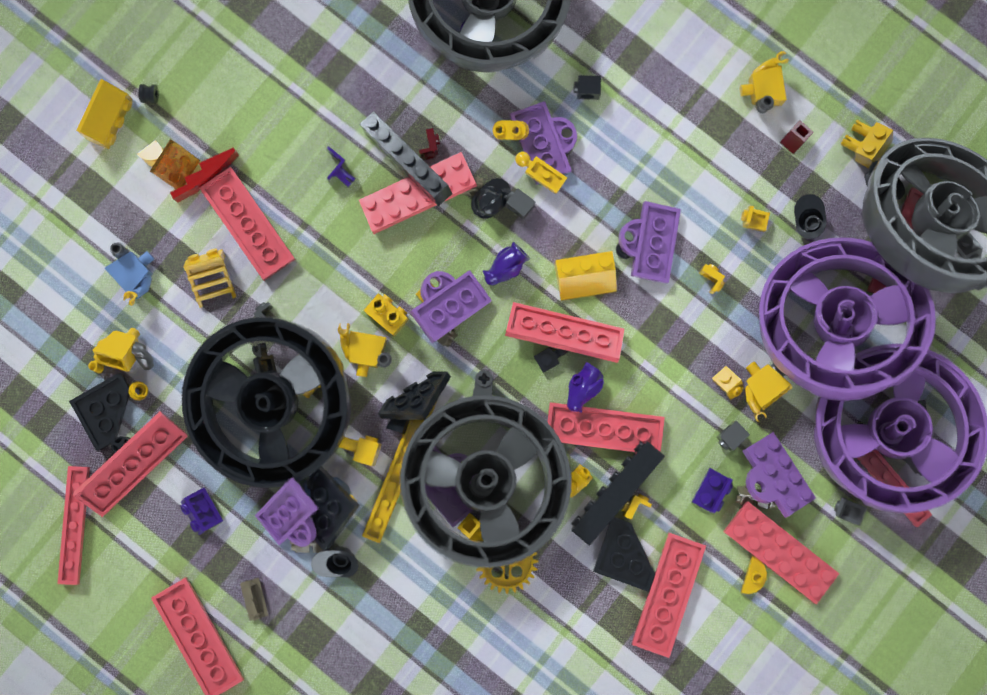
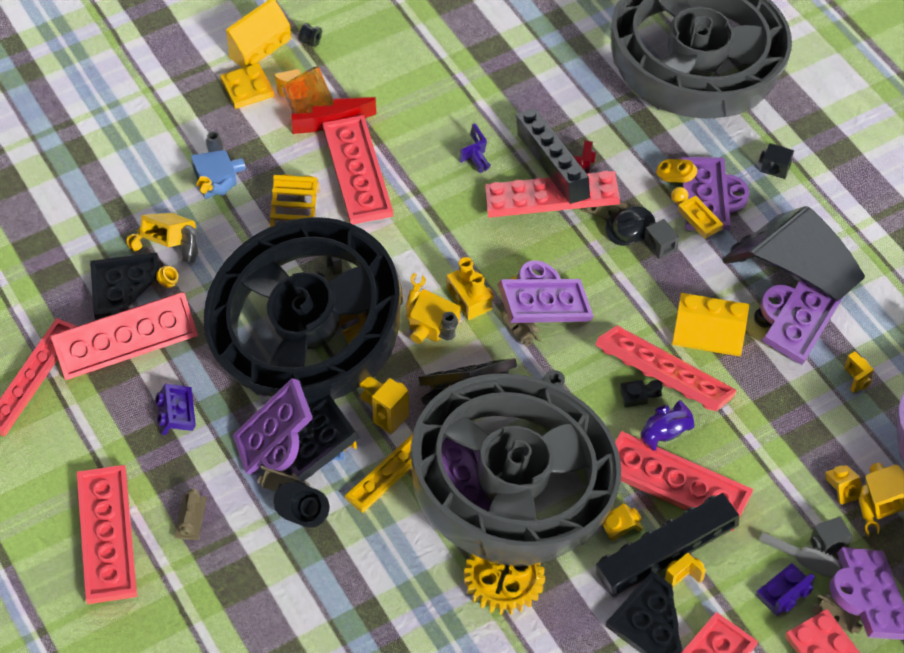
camera: 25 degrees right, 30 degrees down
(117, 167) = (247, 85): none -> yellow plate
(506, 265) = (623, 286): dark purple animal -> none
(633, 186) = (805, 248): none -> panel
(728, 459) = (808, 557): none -> light grey piece

